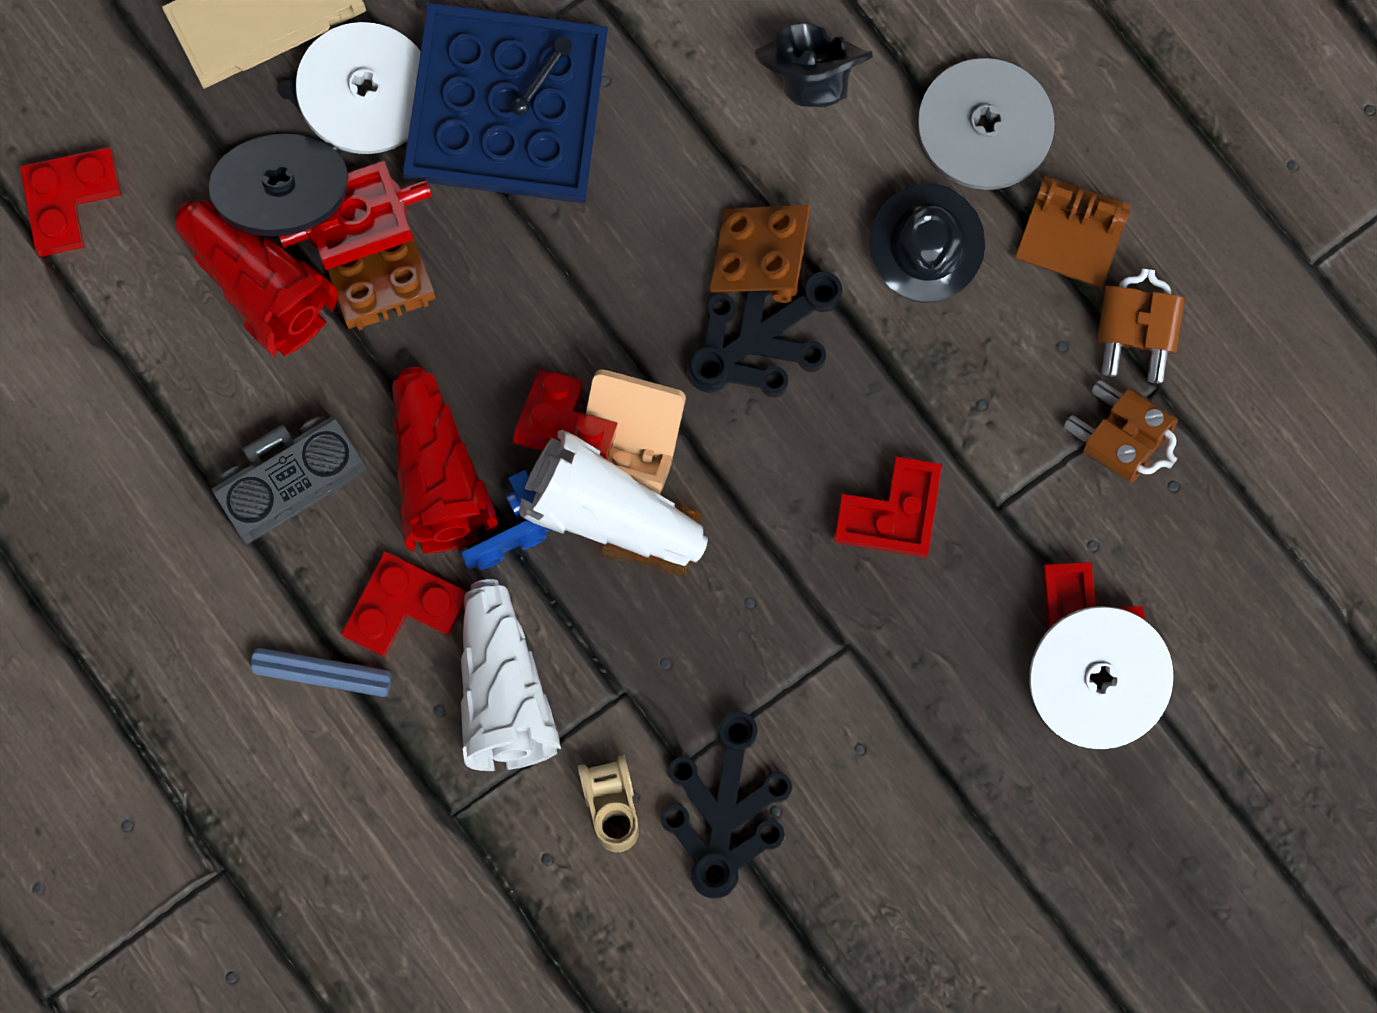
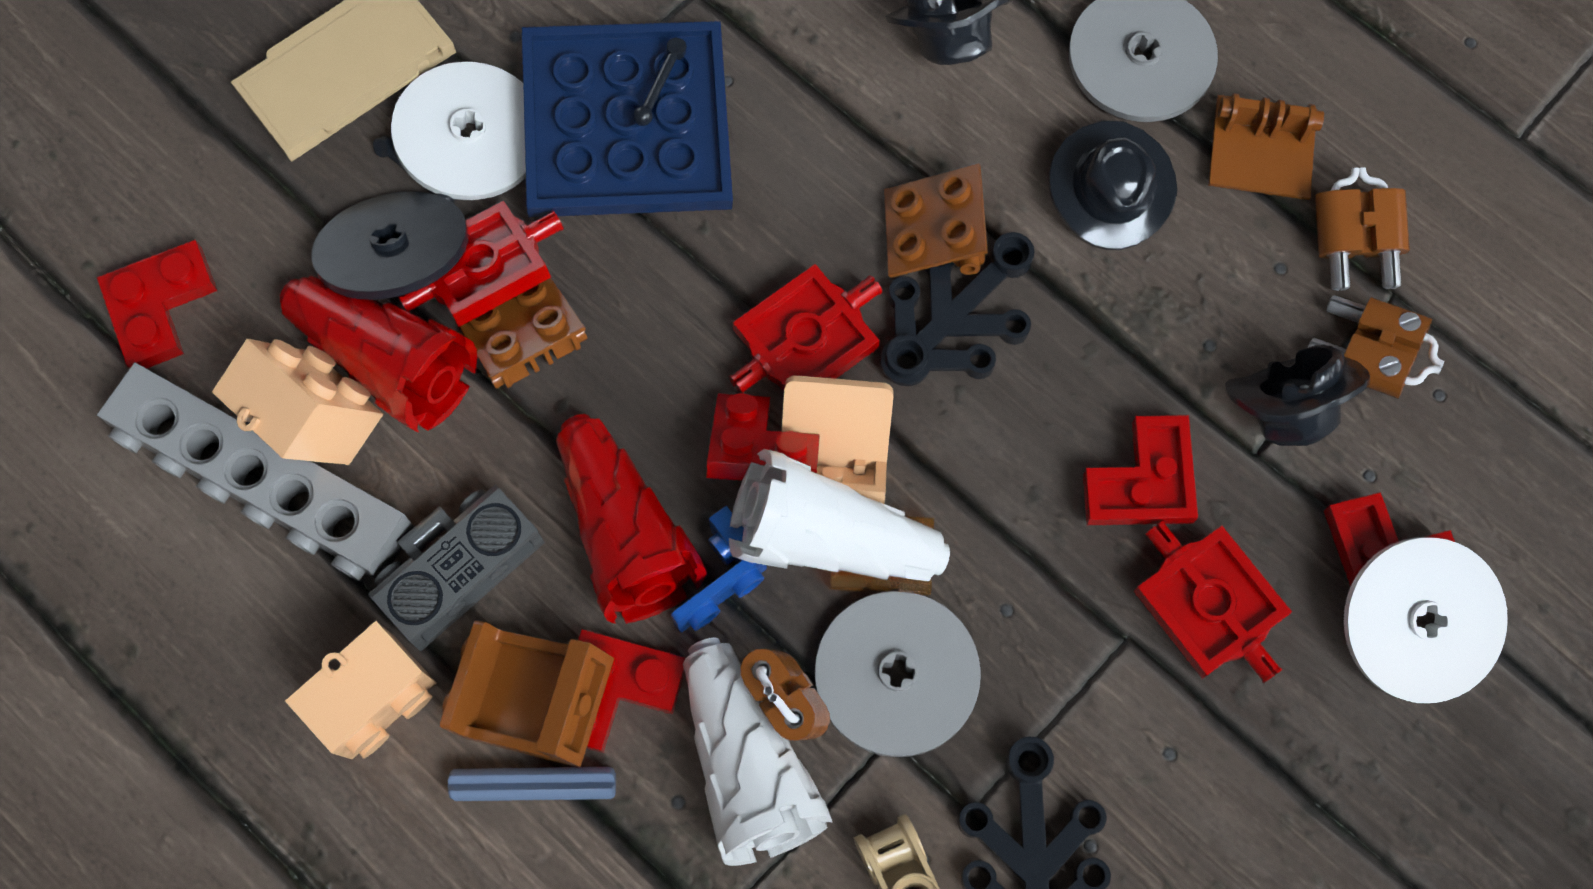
camera: 10 degrees left, 5 degrees down
(50, 285) = (148, 400): none -> light grey brick
(179, 314) = (297, 402): none -> light nougat brick
(196, 573) = (365, 695): none -> light nougat brick
(329, 596) = (526, 693): none -> dark orange panel
(542, 638) = (786, 696): none -> dark orange piece
(626, 328) = (806, 331): none -> red plate
(658, 672) = (921, 710): none -> light grey piece
(924, 628) = (1212, 602): none -> red plate
(1038, 465) = (1302, 396): none -> black hat

